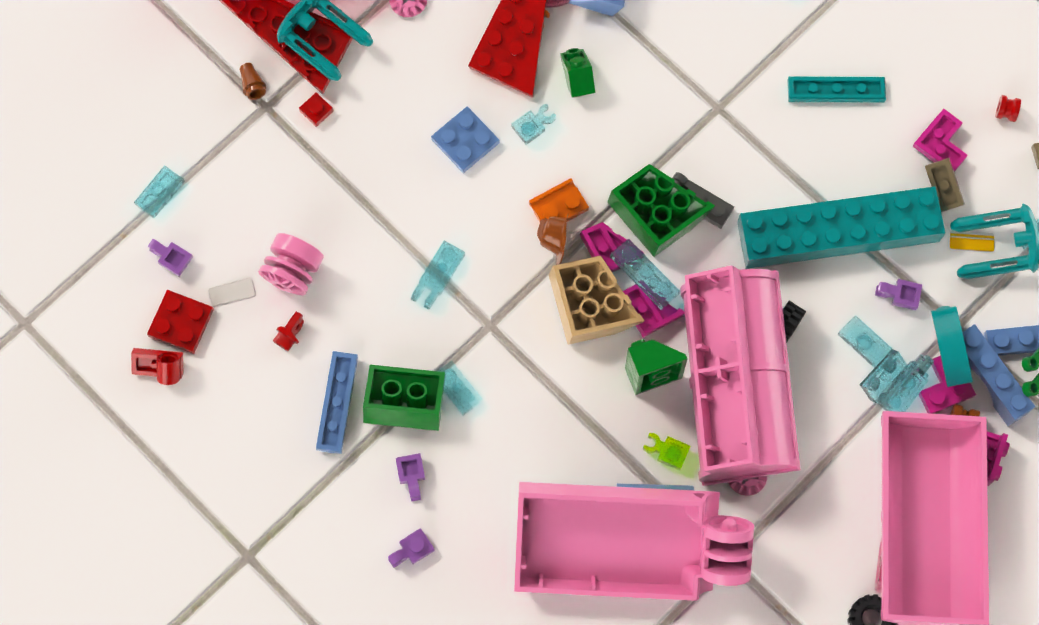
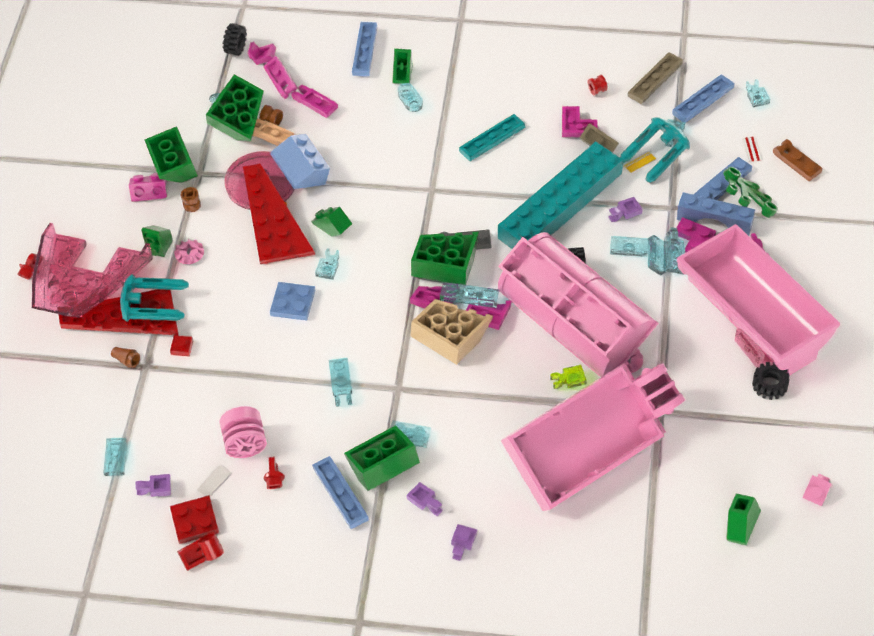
camera: 35 degrees left, 20 degrees down
(553, 235) = (398, 309): dark orange piece -> none
(559, 202) = (382, 297): orange plate -> none
(653, 365) = (520, 331): green slope -> none
(951, 346) = (682, 208): teal arch -> none

